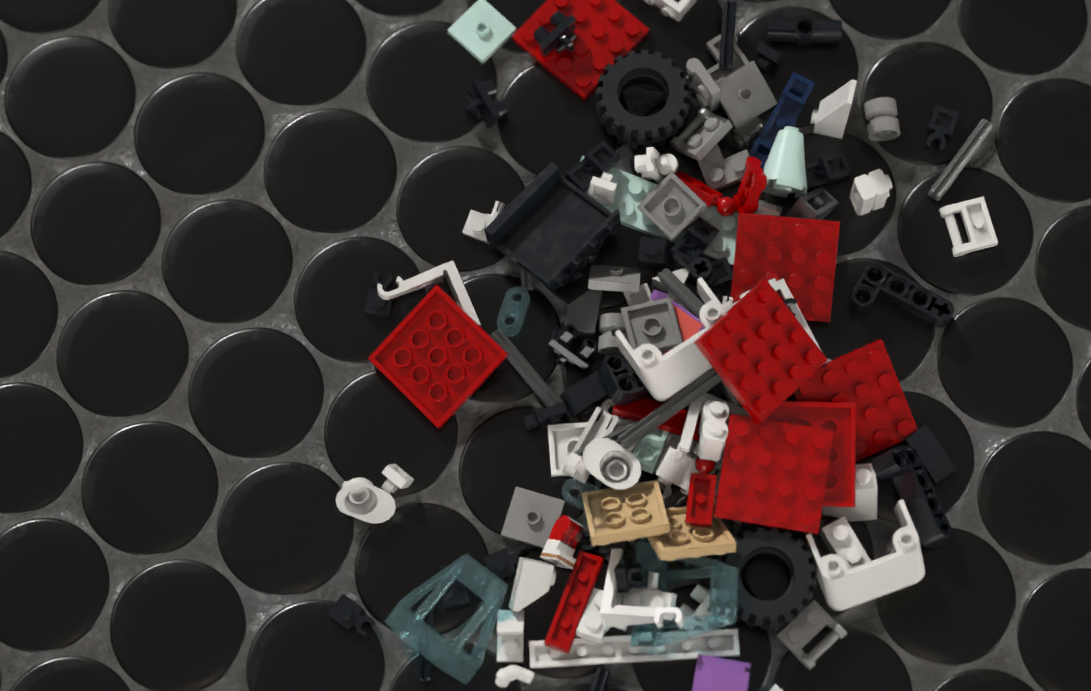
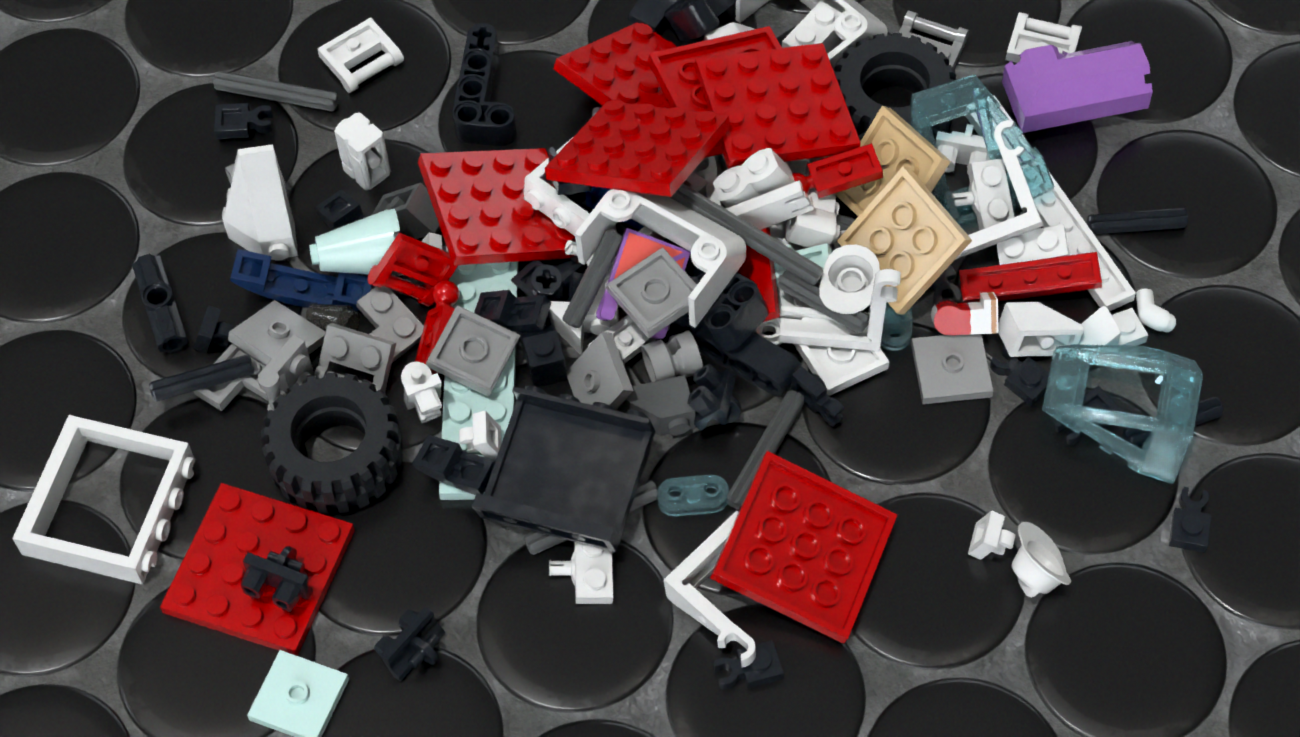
camera: 115 degrees left, 15 degrees down
(625, 575) = (972, 219): black tile -> none

